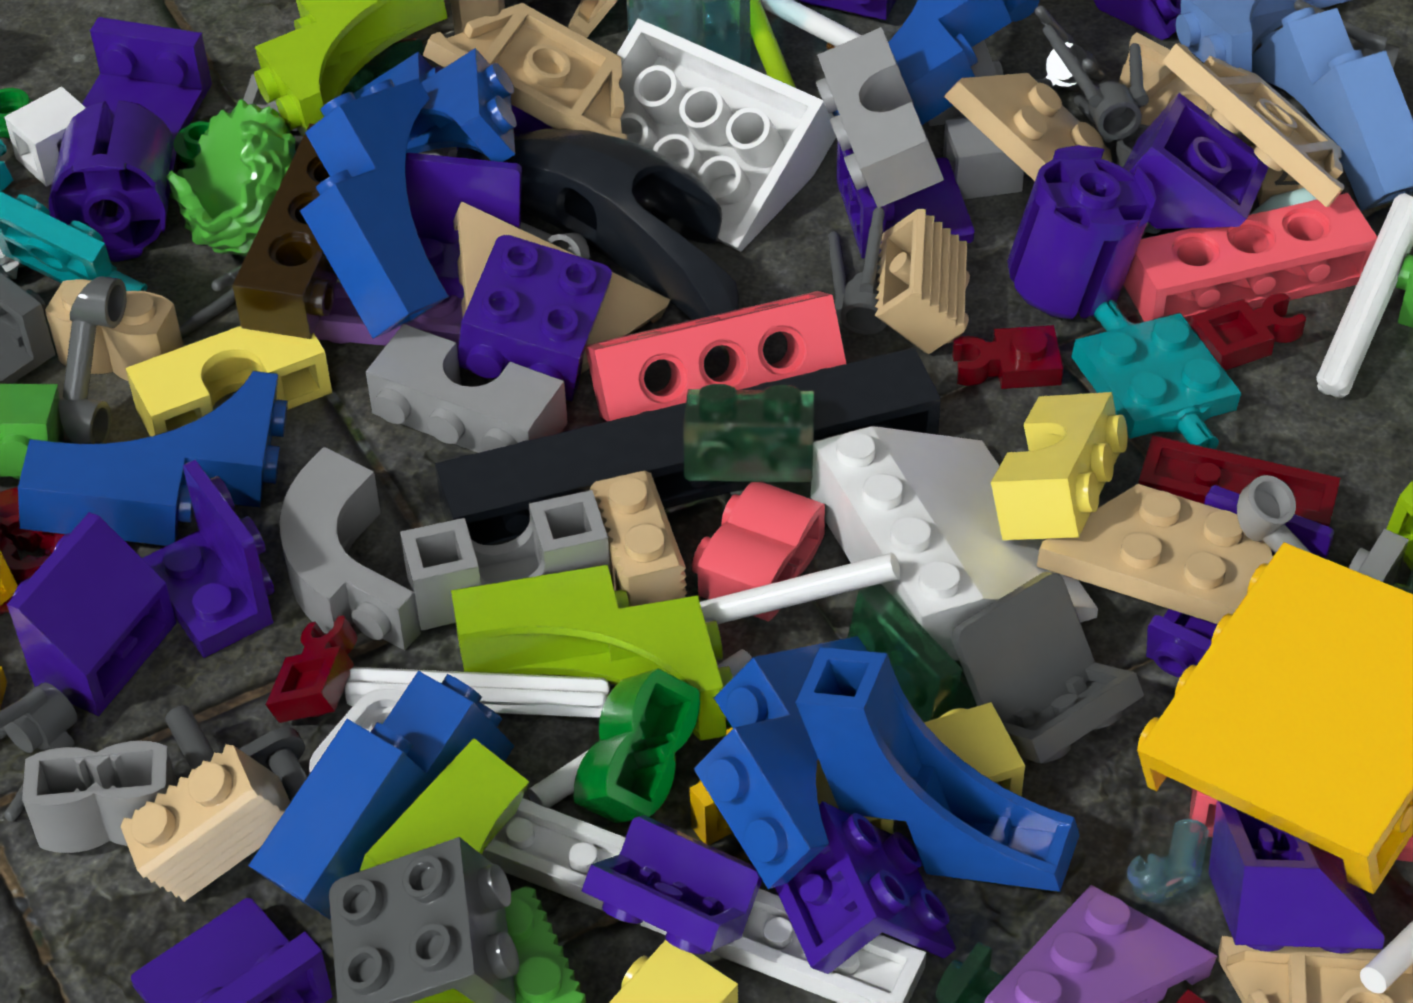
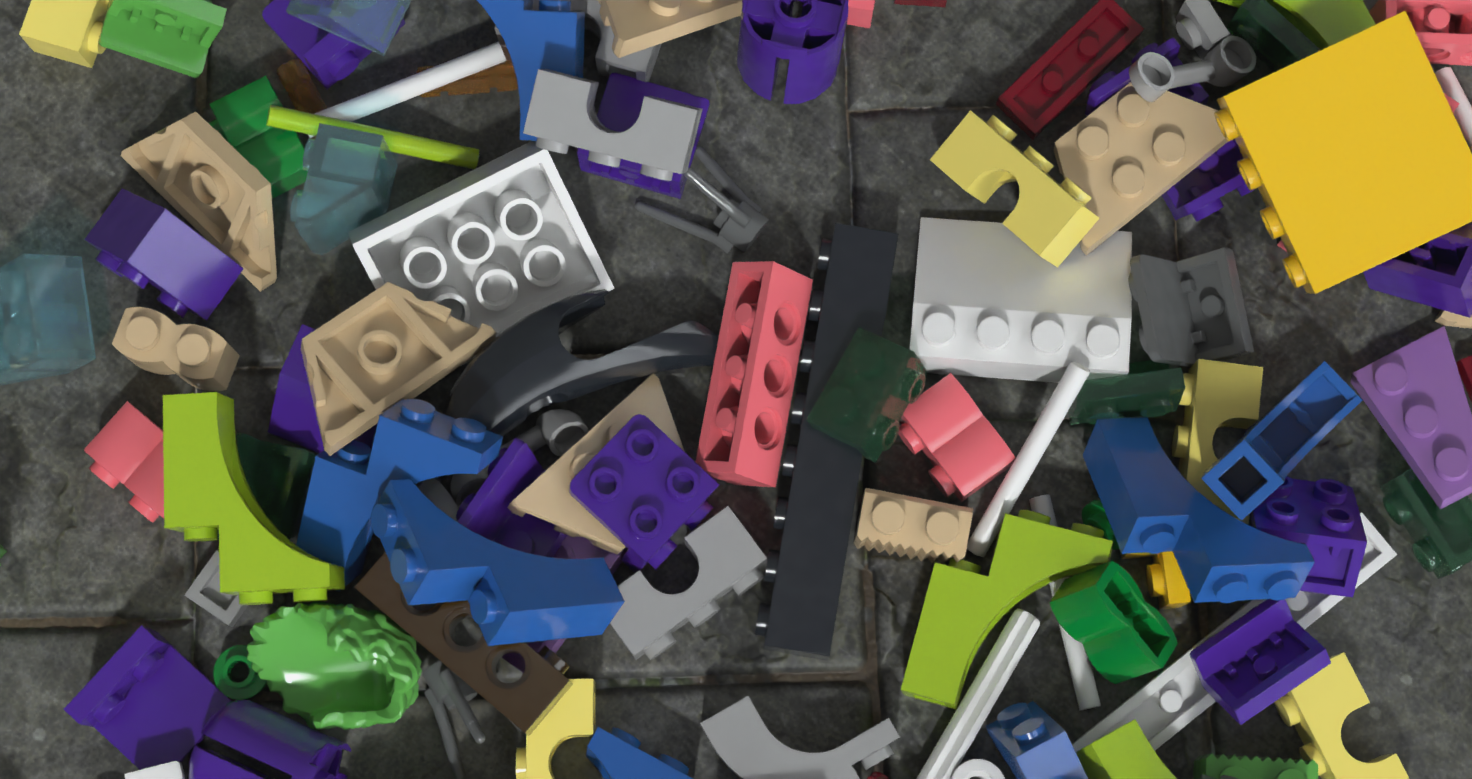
camera: 65 degrees left, 30 degrees up
(441, 557) = (883, 632): light grey arch -> none
(923, 282) = (758, 174): tan brick -> none
(1016, 355) = (851, 142): dark red plate -> none
(1157, 375) = (927, 55): teal plate -> none
(1174, 873) = (1364, 312): clear light blue arm -> none

